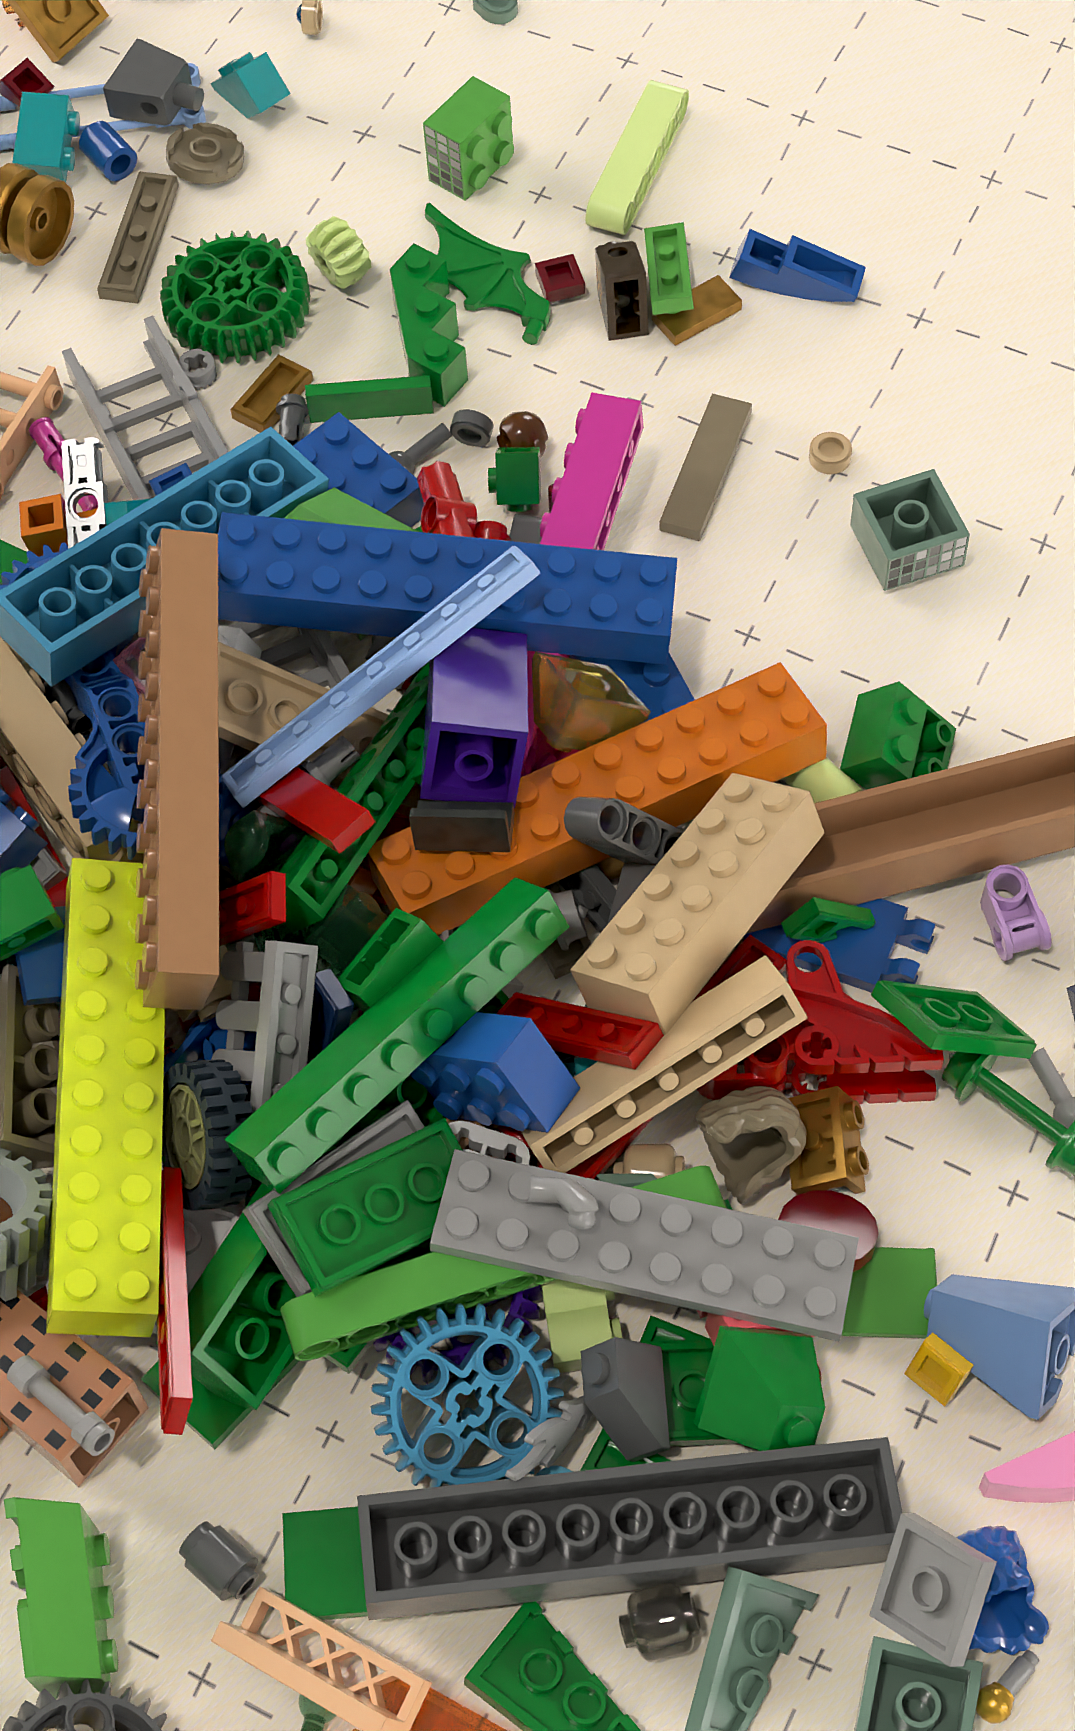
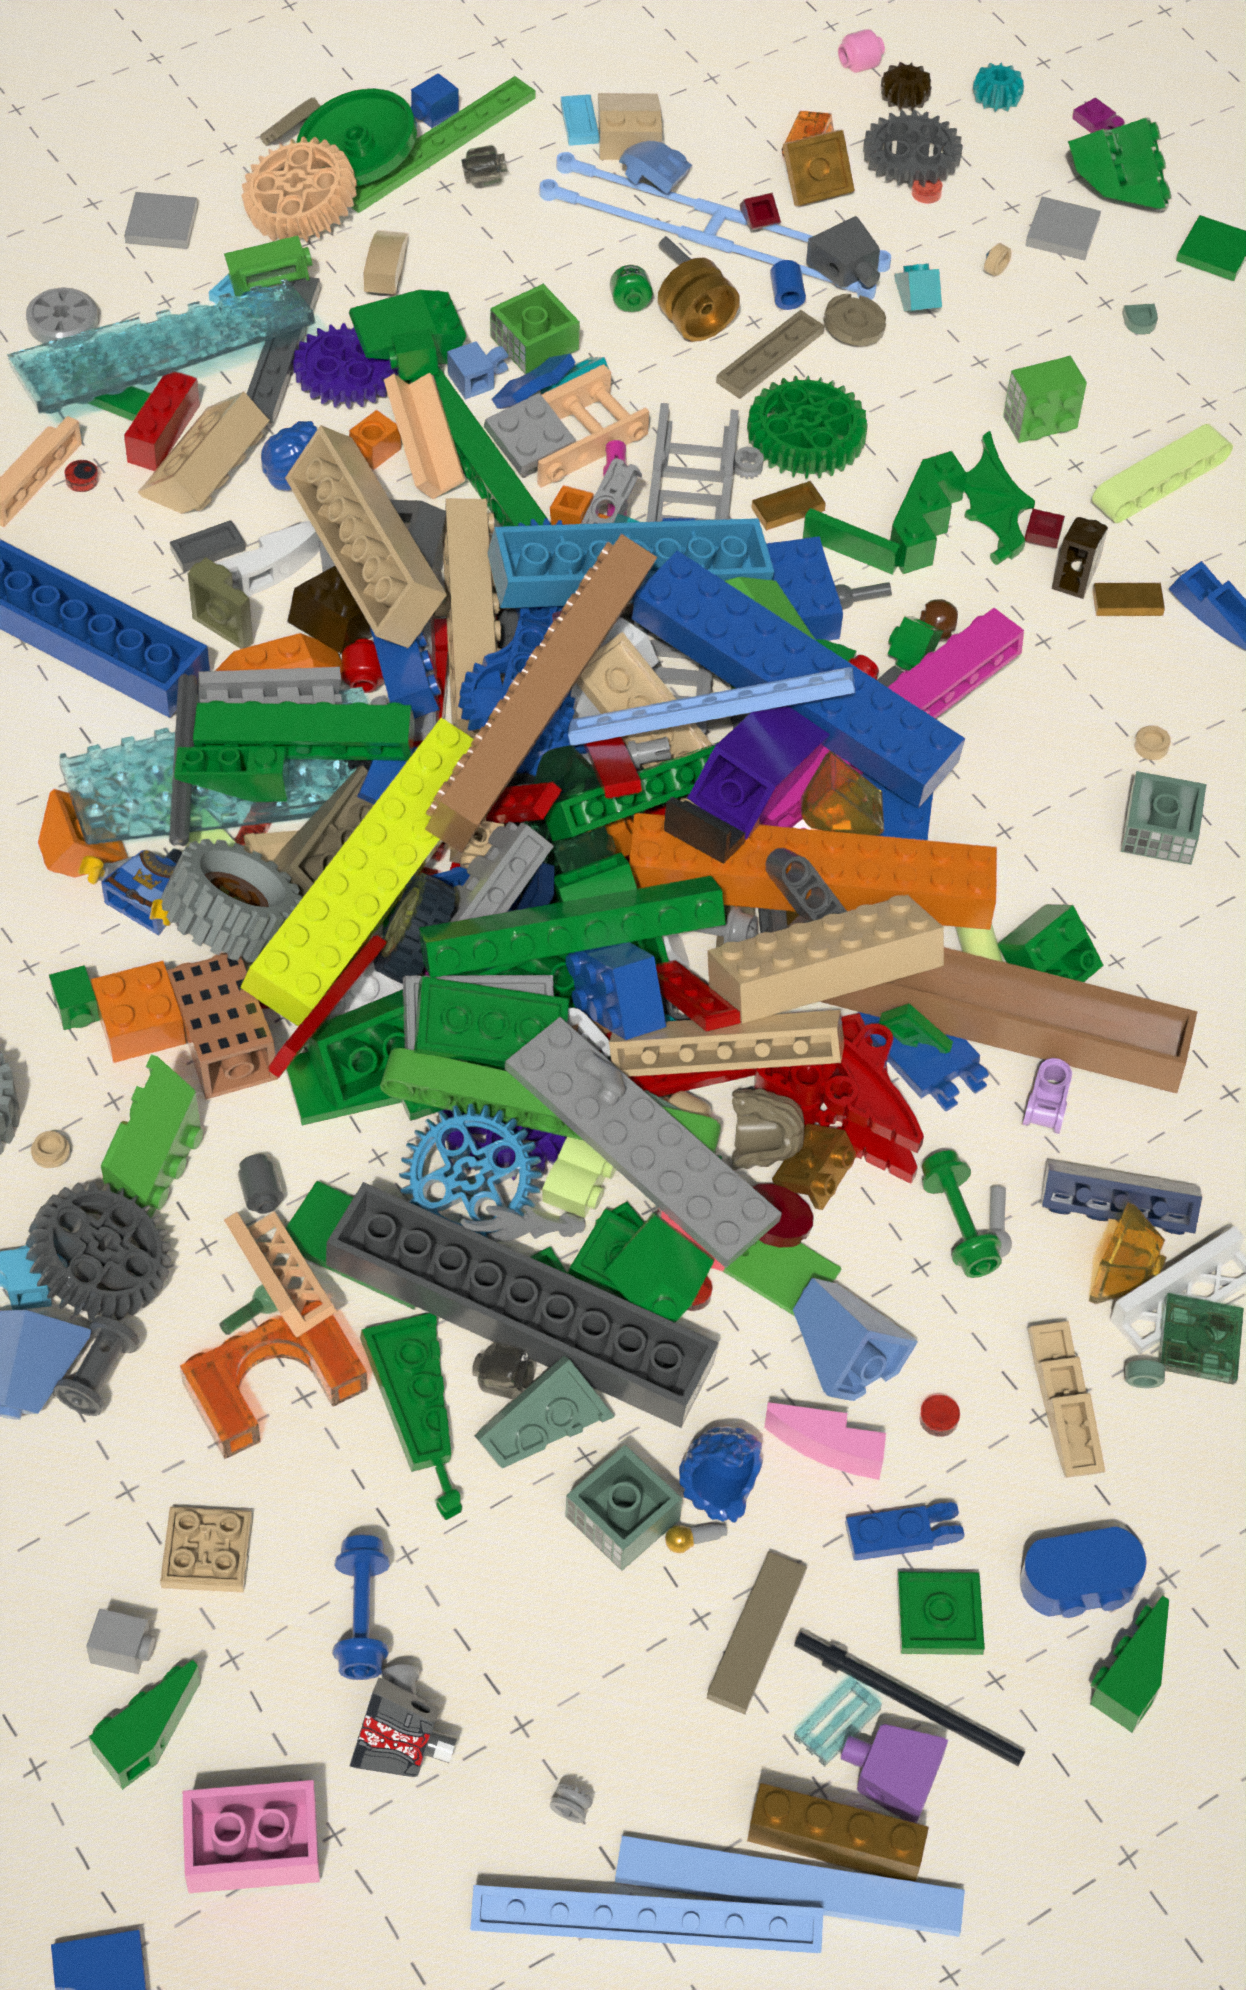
camera: 25 degrees right, 5 degrees down
(46, 134) = (749, 253): teal brick -> none
(87, 1428) = (226, 1048): light grey bar -> none
(292, 414) = (791, 524): dark grey pin -> none
(338, 252) = (897, 431): yellowish green gear -> none
(443, 503) = (844, 632): red piece -> none
(471, 427) = (908, 596): dark grey tile -> none
(627, 1395) = (574, 1227): dark grey slope -> none
(668, 269) = (1125, 559): bright green plate -> none
(705, 467) = (1056, 706): dark tan tile -> none
(932, 1589) = (678, 1435): light grey plate -> none
(938, 1369) = (787, 1334): yellow tile -> none
(953, 1019) = (949, 1130): green tile -> none

